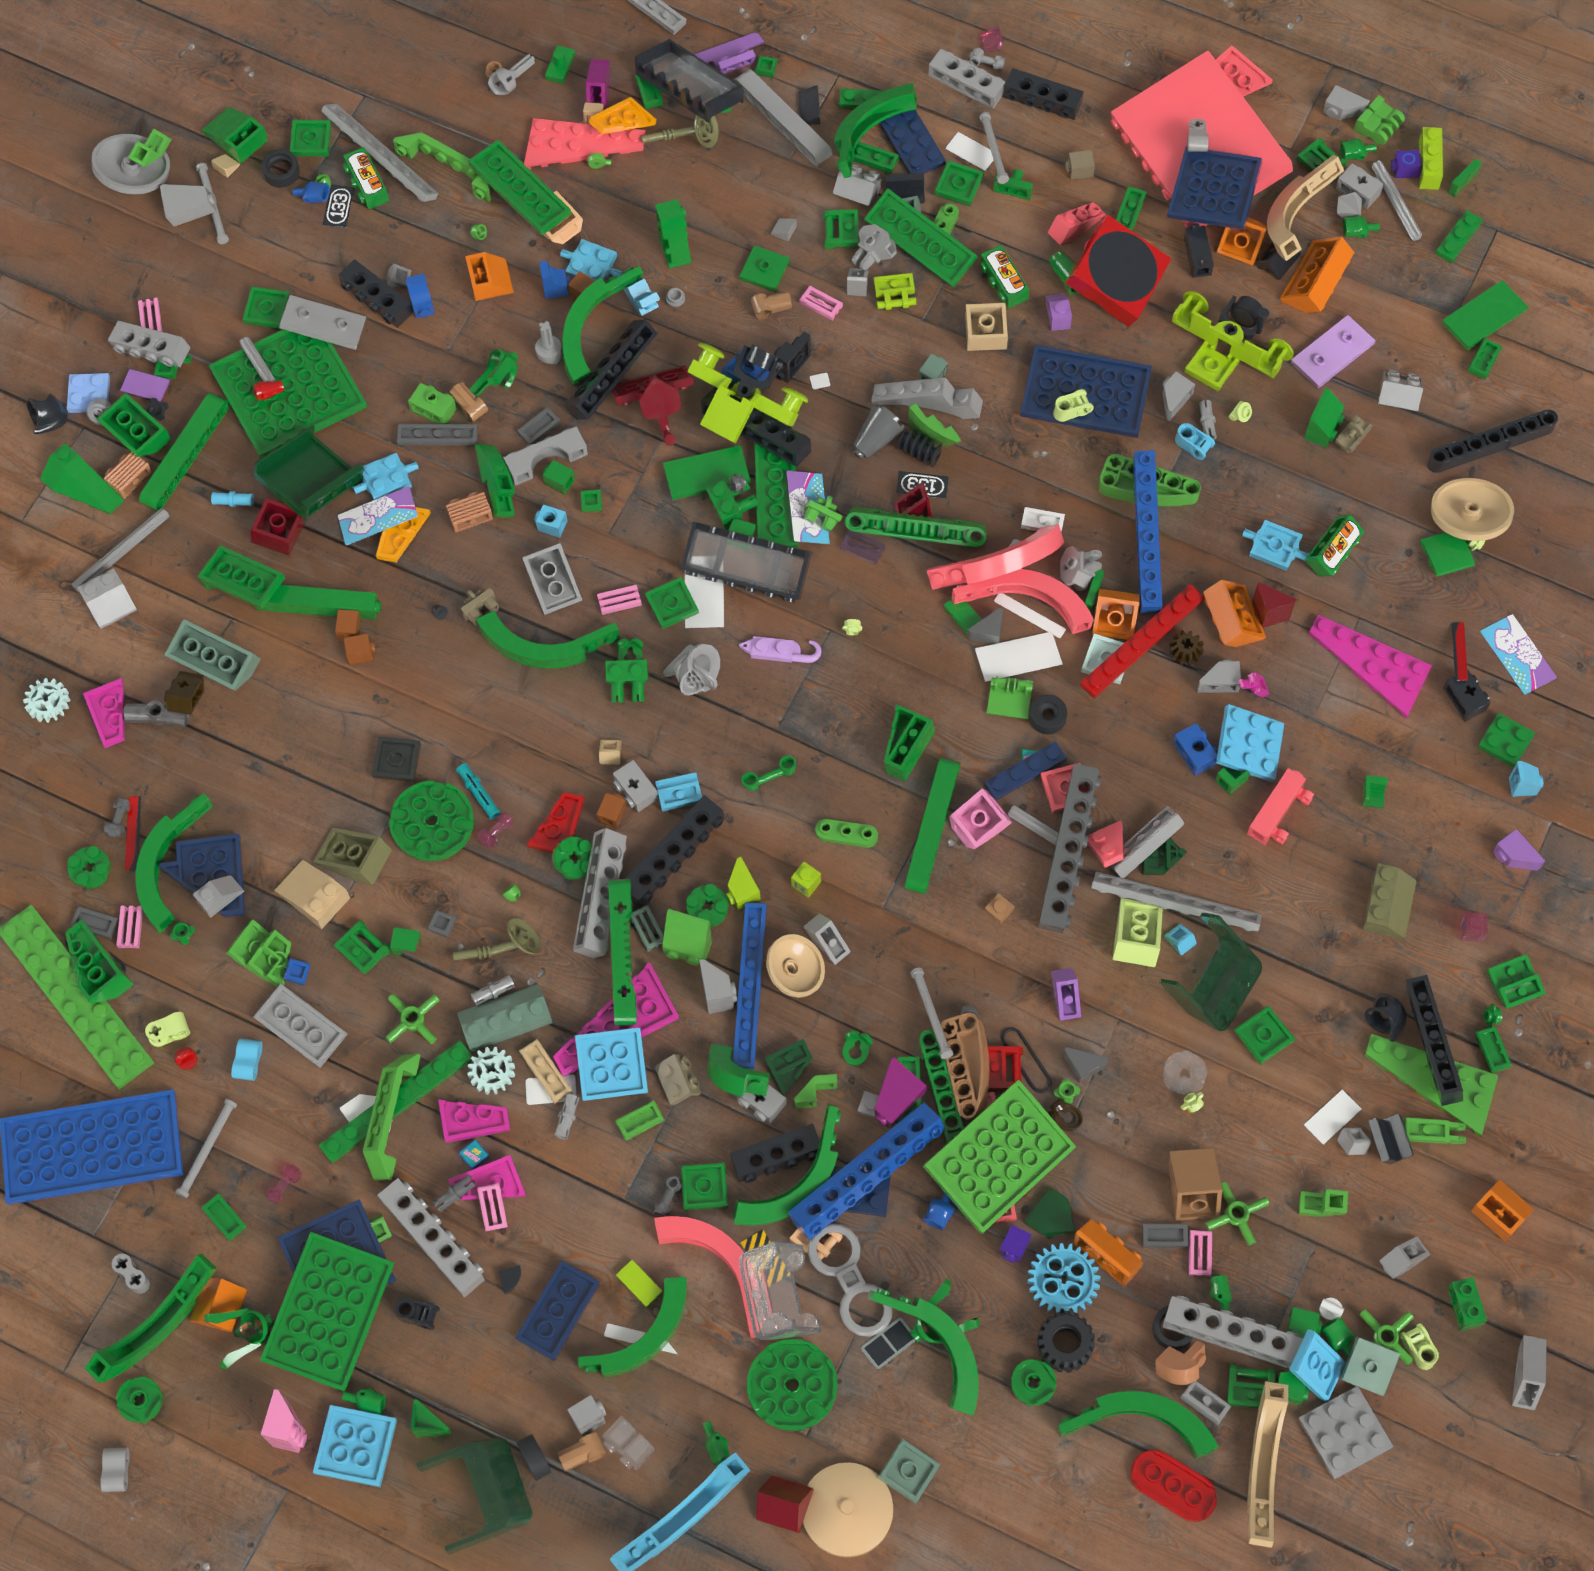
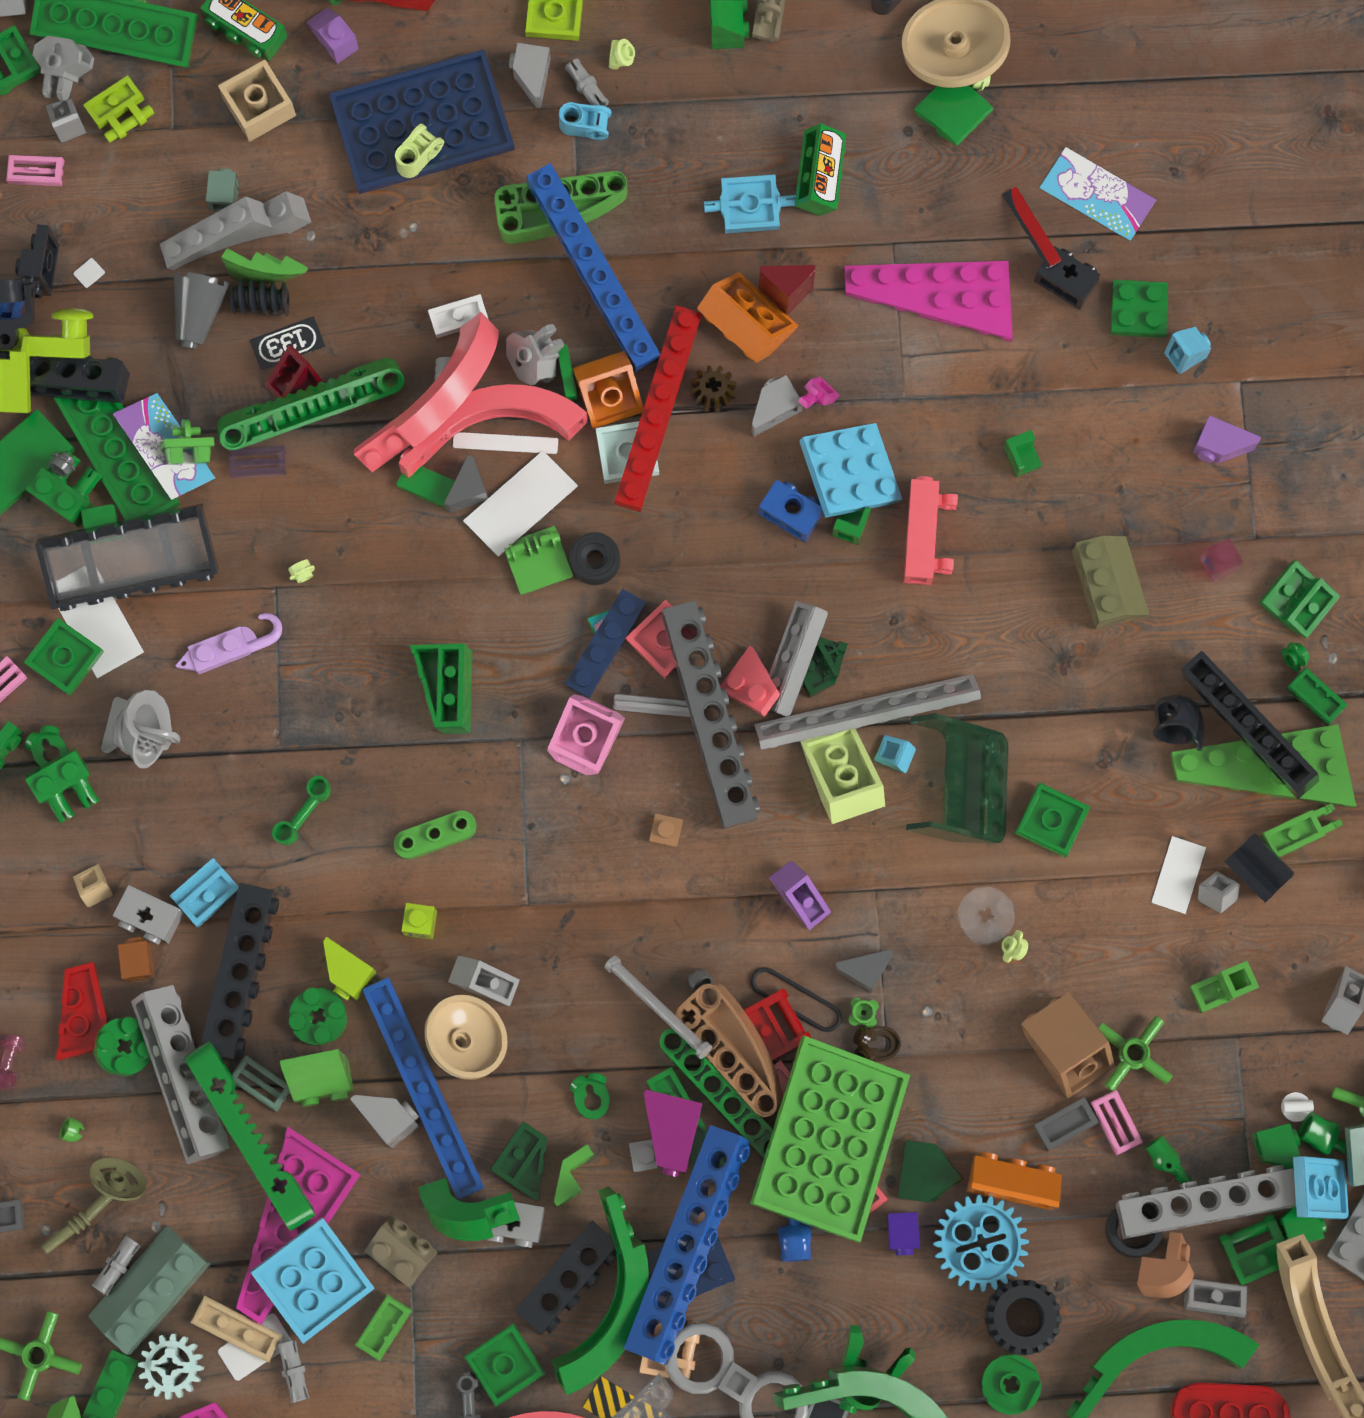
camera: 30 degrees left, 10 degrees up
(932, 826) = (533, 772): green beam -> none

